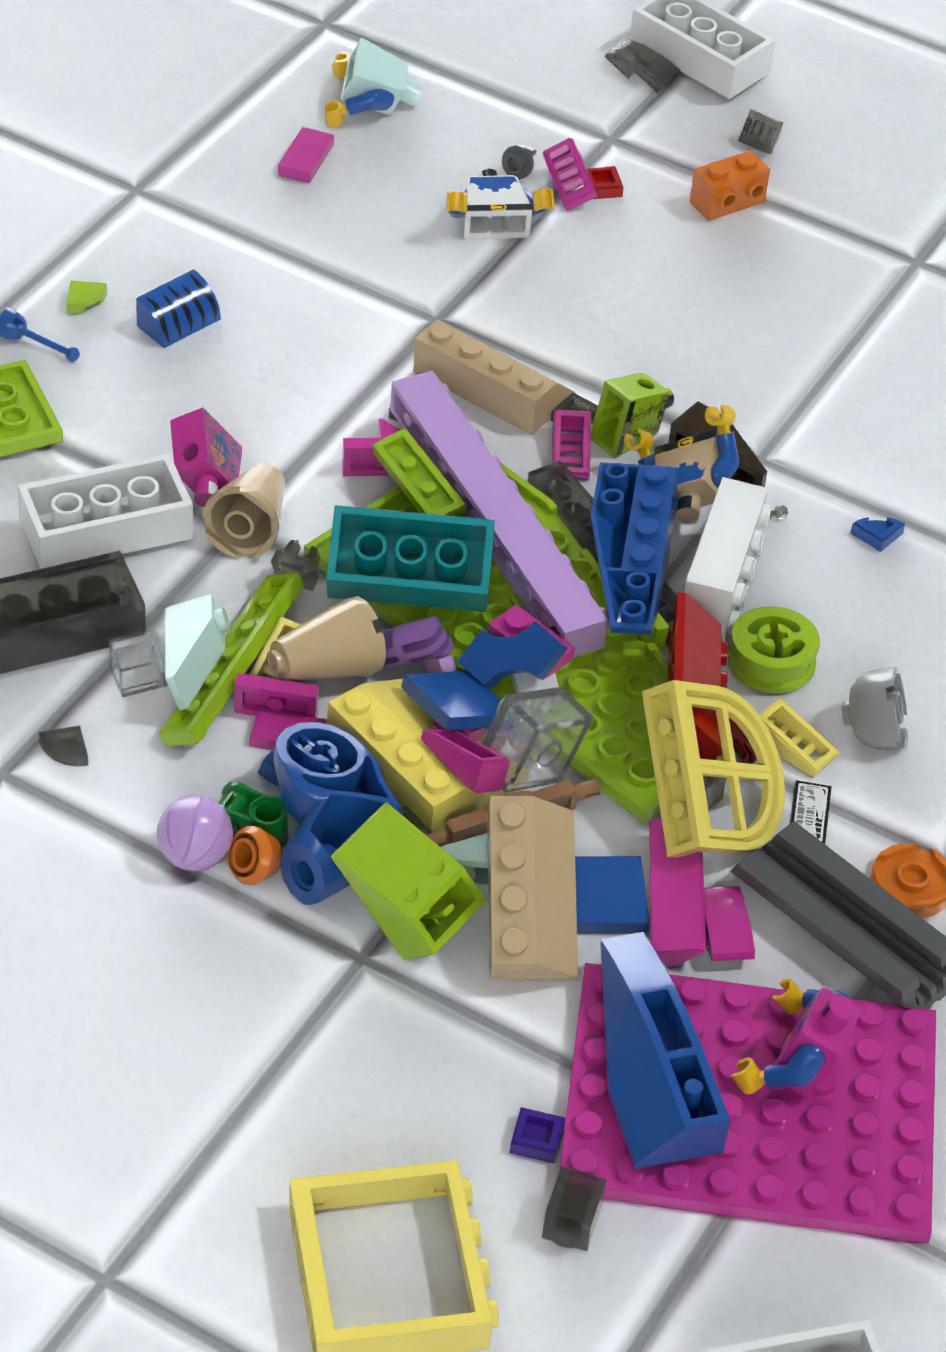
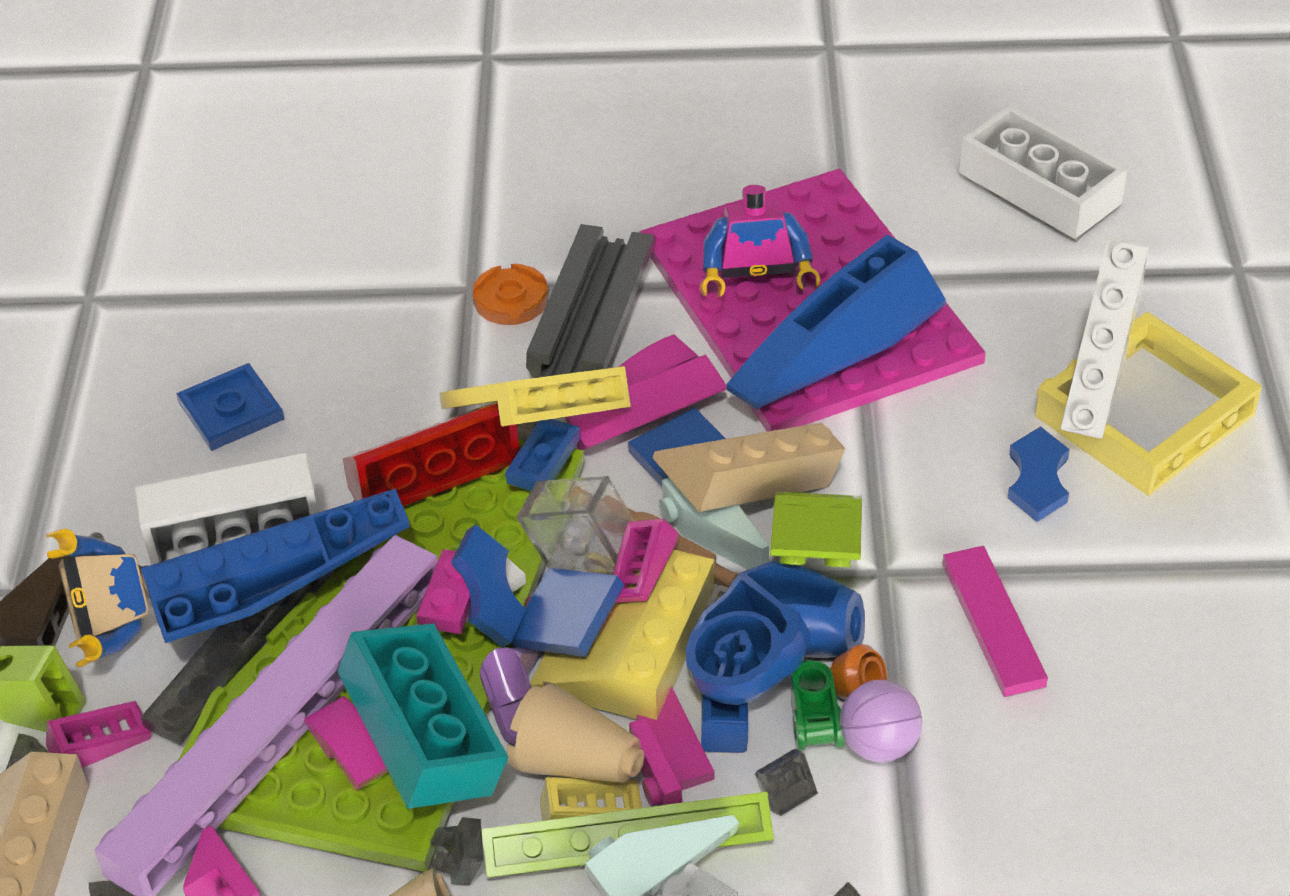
camera: 115 degrees left, 0 degrees up
(201, 764) = (787, 782): none -> clear smoke tile
(244, 991) = (994, 621): none -> dark pink tile
(360, 1118) = (1038, 487): none -> blue tile
(417, 475) = (269, 794): lime plate -> none
(443, 1195) = (1106, 337): none -> white slope
(537, 1135) = (951, 388): dark purple tile -> none
(573, 1209) = (1003, 330): clear smoke brick -> none
(634, 760) = (543, 453): none -> blue plate
(773, 650) = (314, 435): lime wheel -> none
(784, 720) = (407, 415): light yellow slope -> none
(811, 807) = (484, 375): sticker -> none
(877, 532) = (82, 464): blue tile -> none
(877, 709) = (345, 356): light grey cylinder -> none
(887, 638) = (230, 406): none -> blue tile

